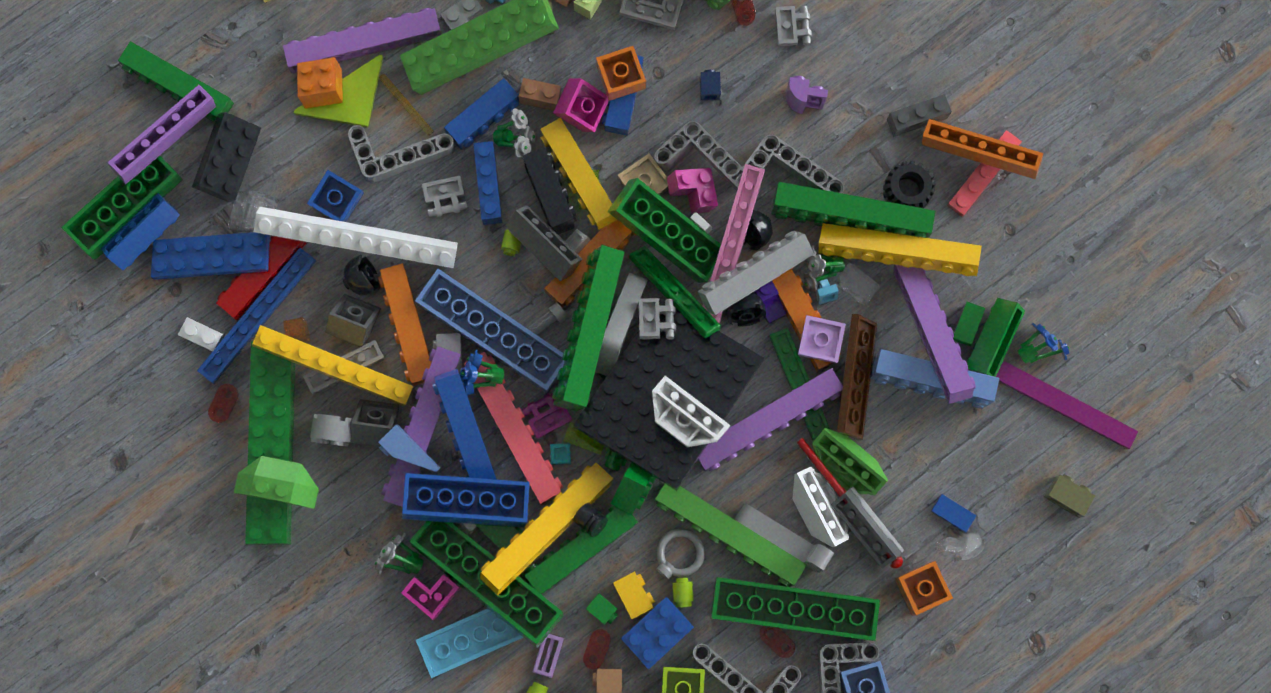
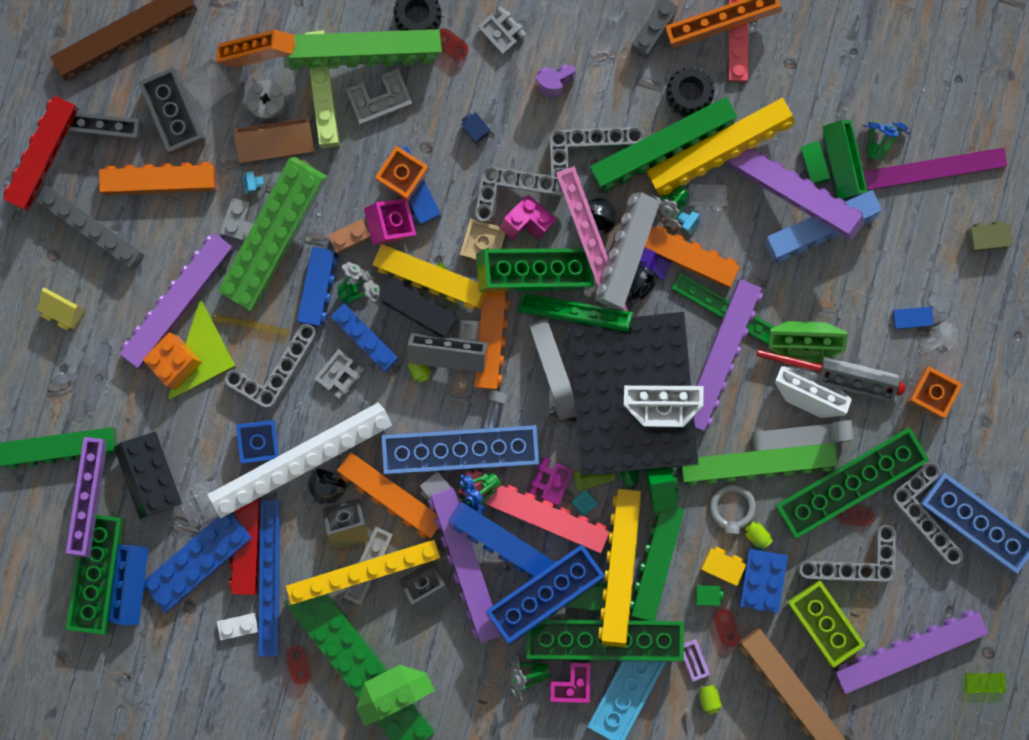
camera: 30 degrees left, 5 degrees up
(297, 329) = (310, 566): clear orange brick -> none
(331, 428) = (397, 620): light grey brick -> none
(403, 447) = (467, 592): medium blue slope -> none
(588, 328) = (534, 392): green brick -> none
(590, 519) = (649, 536): black piece -> none
(649, 318) = (574, 348): light grey plate -> none
(699, 221) = (554, 243): white plate -> none
(821, 339) = (715, 263): lavender plate -> none
(857, 377) = (763, 270): reddish brown tile -> none

